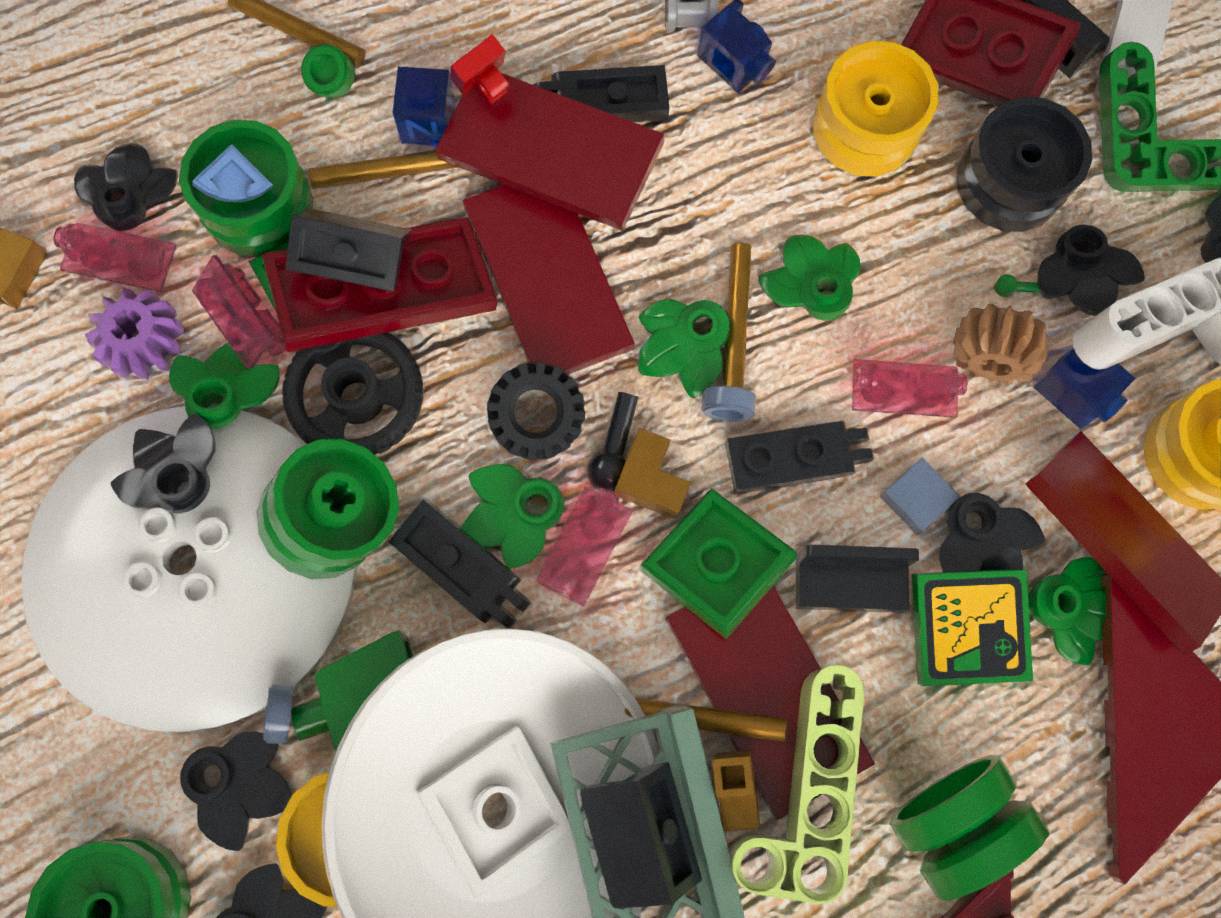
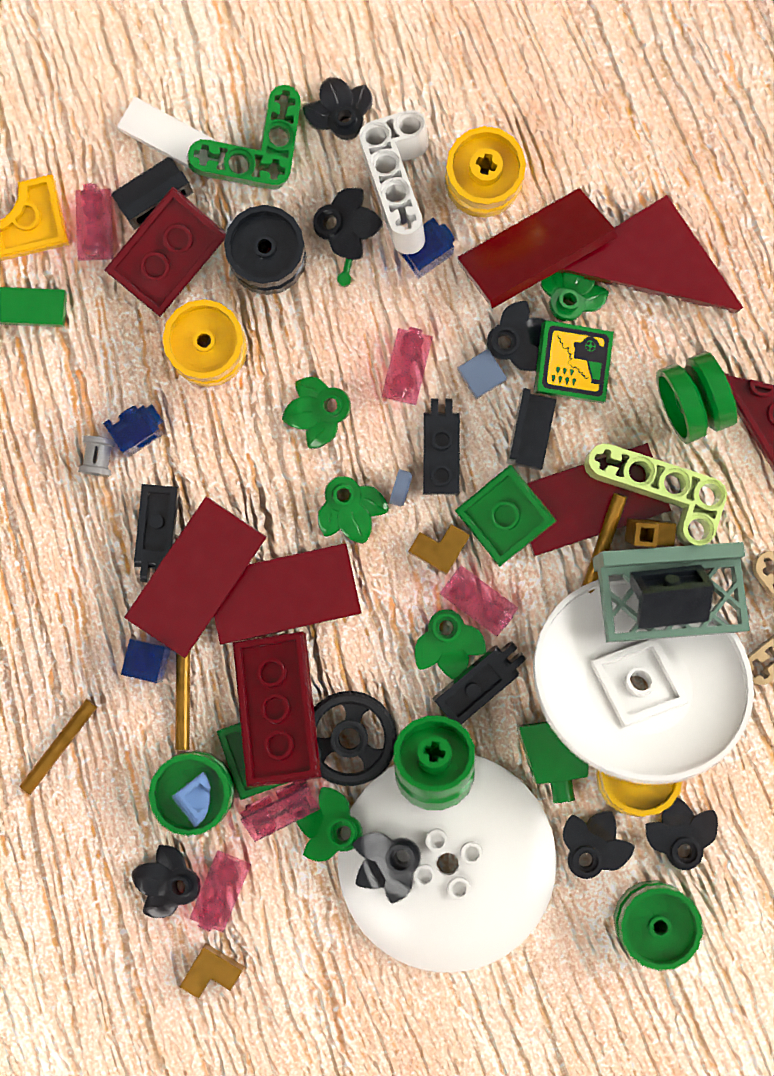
camera: 75 degrees left, 10 degrees up
(121, 319) = (280, 894): medium lavender gear -> none
(278, 714) = (557, 811): sand blue tile -> none
(327, 71) = (101, 727): green tile -> none
(346, 248) = (254, 726): black panel -> none
(481, 69) = (137, 616): red tile -> none
(567, 422) = (405, 610): black tyre -> none
(606, 466) = (426, 576): black bar -> none
(738, 315) = (337, 469): pearl gold bar -> none
(1000, 344) = (393, 299): medium nougat gear -> none

